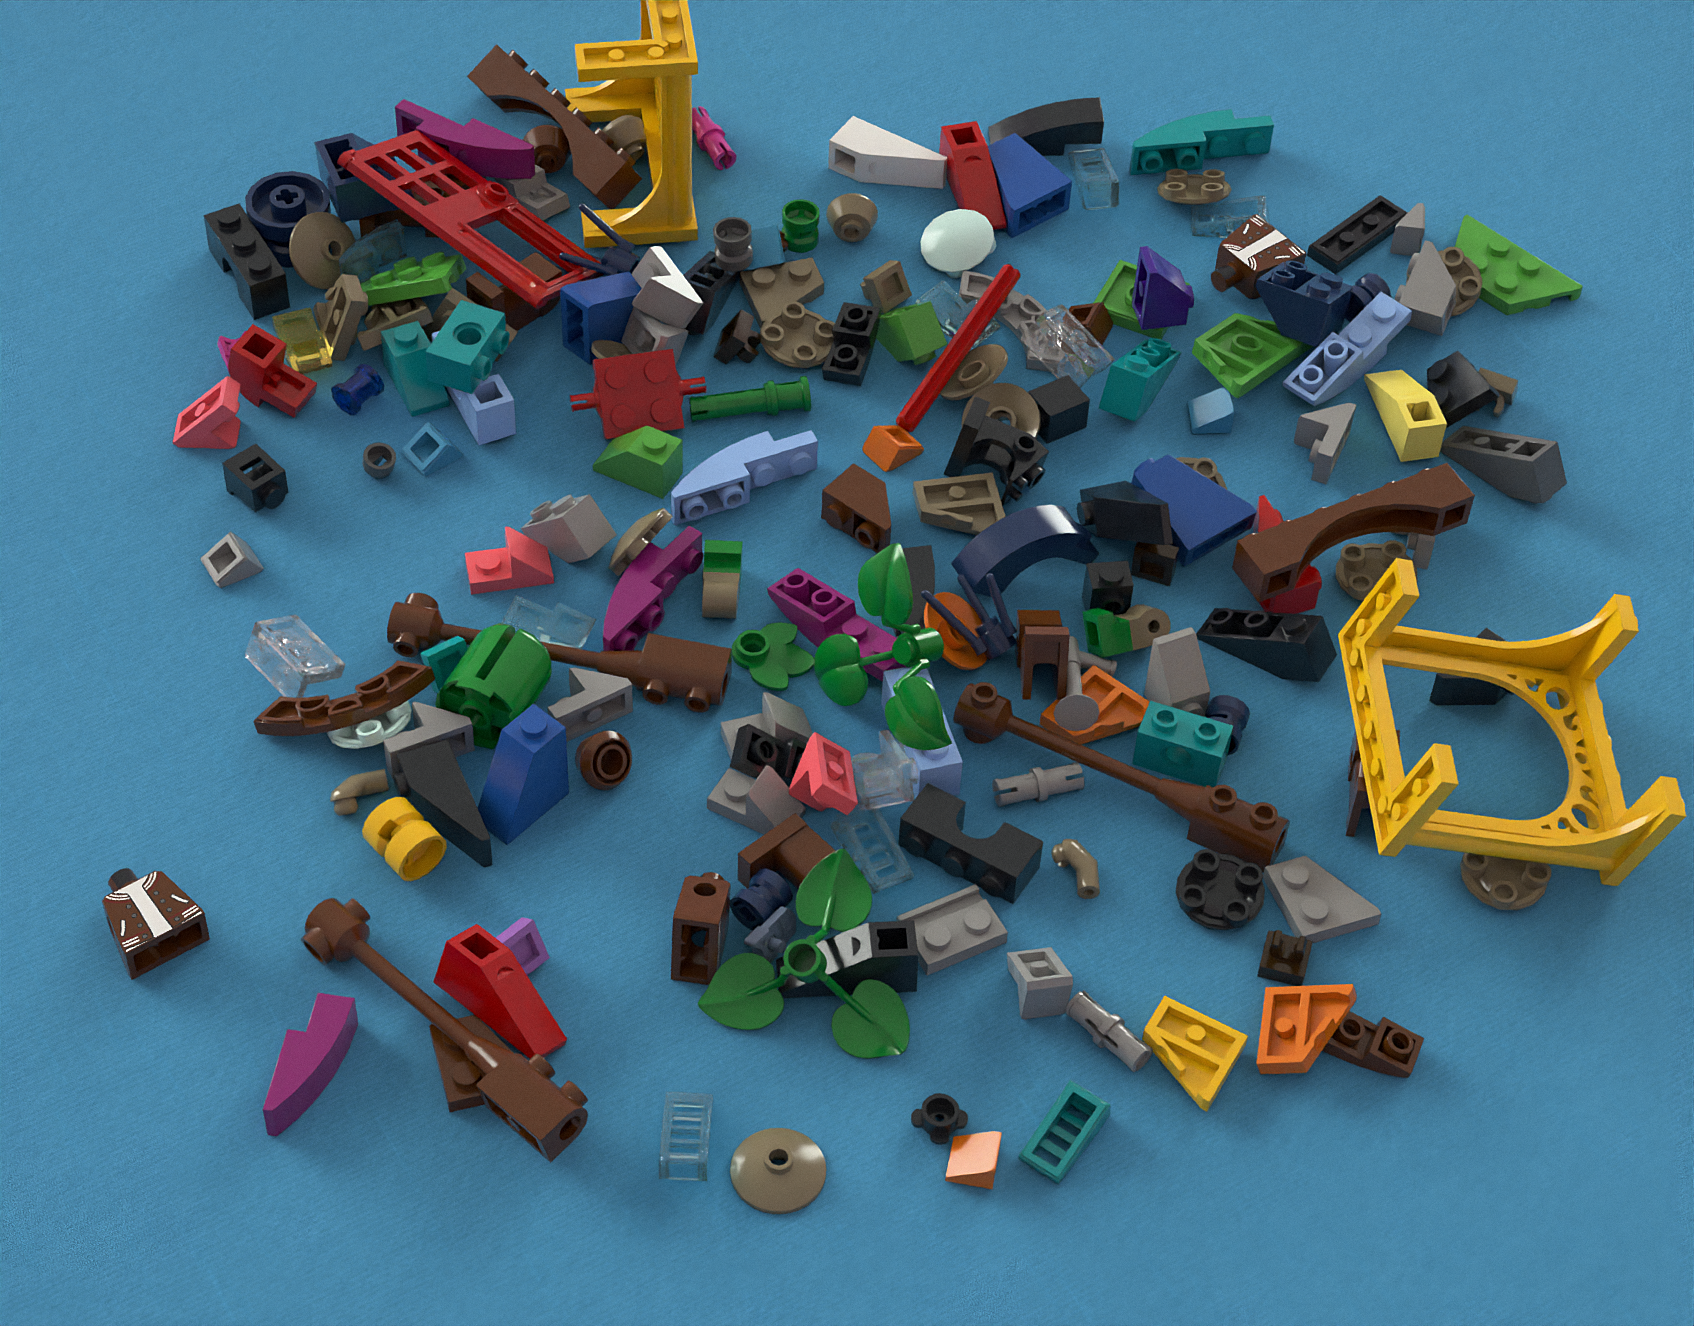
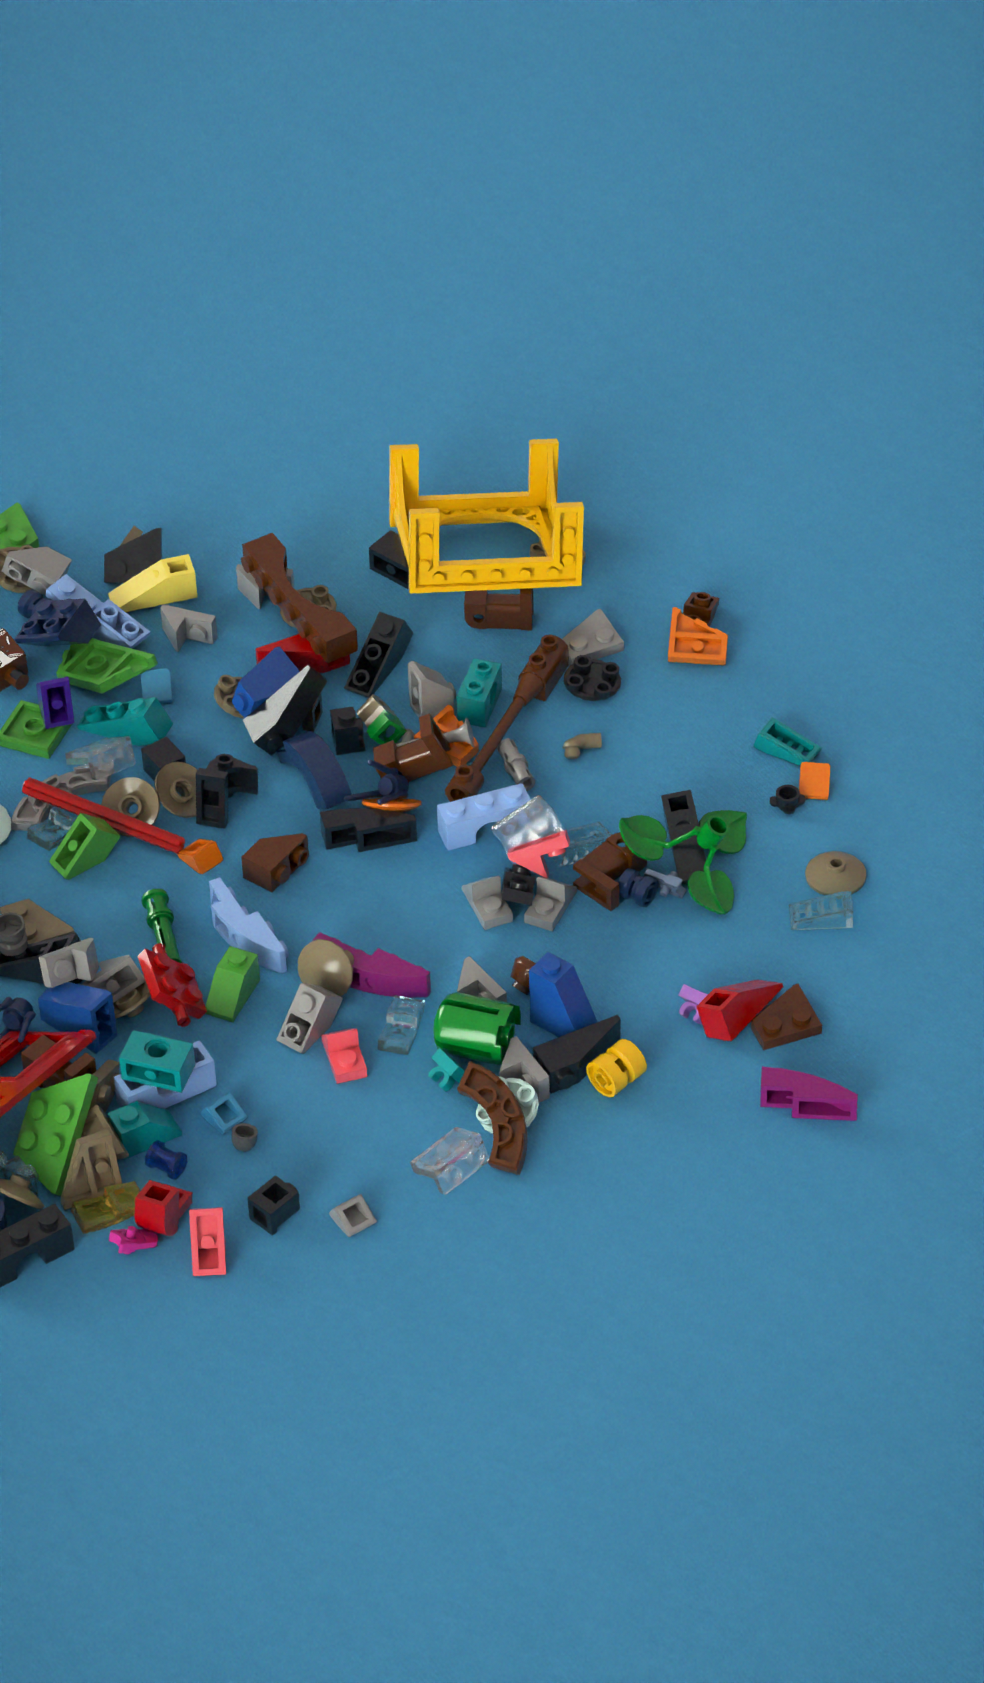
camera: 90 degrees left, 5 degrees down
(151, 920) = (705, 1197): reddish brown torso -> none
(357, 785) = (569, 1110): dark tan arm -> none
(512, 1086) = (813, 980): reddish brown bar -> none
(660, 670) = (440, 956): reddish brown bar -> none
(700, 907) = (668, 907): reddish brown torso -> none
(721, 578) = (357, 931): leg -> none
(738, 339) = (102, 939): dark brown tile -> none
(772, 655) = (415, 903): green plate -> none
(797, 336) = (90, 909): dark tan dish -> none
(825, 612) = (392, 867): magenta slope -> none
(852, 344) = (96, 874): black slope -> none
(886, 286) = (34, 862): dark tan tile -> none
(915, 710) = (425, 780): green plant -> none
(955, 929) = (637, 797): light grey plate -> none
(959, 502) = (263, 809): dark tan wing -> none
(996, 863) = (586, 778): black arch -> none
(1041, 982) = (684, 747): light grey slope -> none
(1094, 319) = (56, 759): reddish brown slope -> none
(1108, 1031) = (709, 727): light grey pin -> none
(1194, 1048) = (718, 688): yellow wing -> none
(1232, 712) = (454, 673): dark blue wheel -> none
(1285, 958) = (638, 652): dark brown tile -> none
(1510, 462) = (206, 535): dark grey slope -> none

